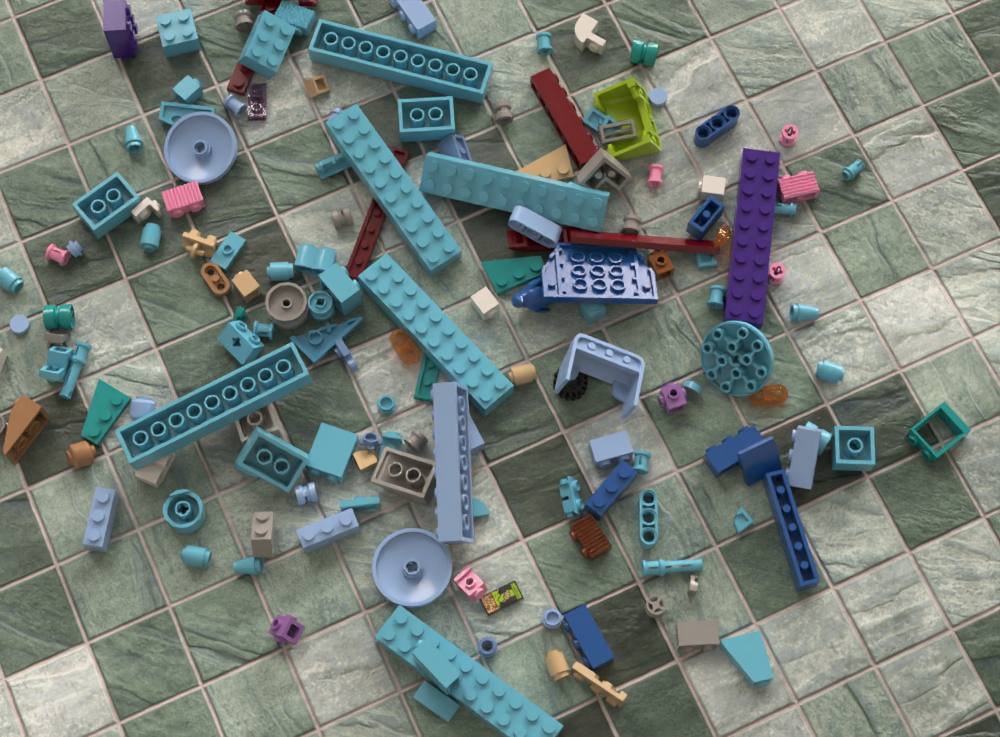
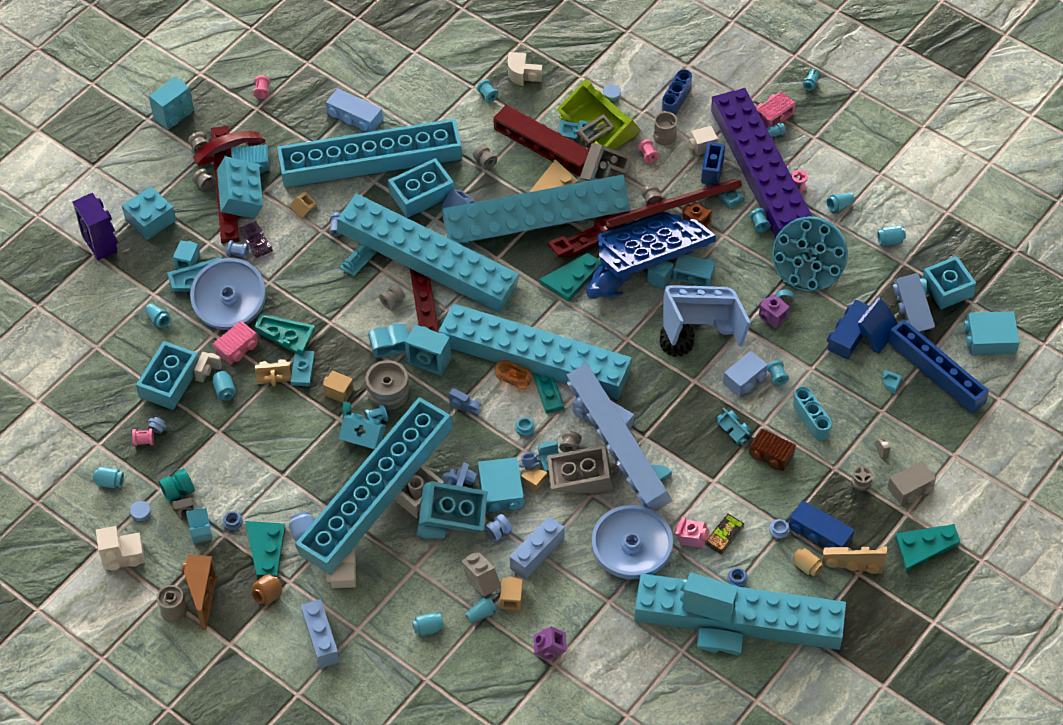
camera: 25 degrees left, 15 degrees down
(77, 361) = (216, 517): medium azure pin -> none
(87, 368) = (232, 516): none -> medium blue plate
(174, 507) = (395, 590): medium azure brick -> none
(215, 280) = (307, 394): medium nougat plate -> none
(231, 210) = (285, 332): none -> teal wing
(280, 271) = (362, 361): medium azure brick -> none
(282, 563) = (511, 593): none -> tan brick
(305, 427) = (463, 475): none -> light blue hips
(320, 342) = (439, 393): dark azure wing -> none
(321, 306) = (418, 372): medium azure wheel -> none
(360, 503) = (555, 511): medium azure plate -> none
(485, 304) = (563, 309): white brick -> none
(522, 374) = (632, 348): tan brick -> none
(535, 226) = (571, 228): light blue beam -> none
(610, 490) = (766, 403): blue brick -> none
(626, 320) = (694, 270): none -> medium azure brick
(643, 52) = (579, 62): teal wheel -> none
(674, 700) = (923, 544): none -> teal wing
(683, 159) = (665, 128): none -> light grey wheel
(695, 565) = (848, 445): medium azure pin -> none
(722, 236) = (736, 170): clear orange plate -> none
(749, 657) = (966, 480): medium azure slope -> none
(769, 396) = (854, 275): clear orange plate -> none
(792, 135) = (738, 80): bright pink bush -> none
(863, 519) = (991, 333): none -> medium azure brick
(951, 419) = (1007, 226): teal window -> none

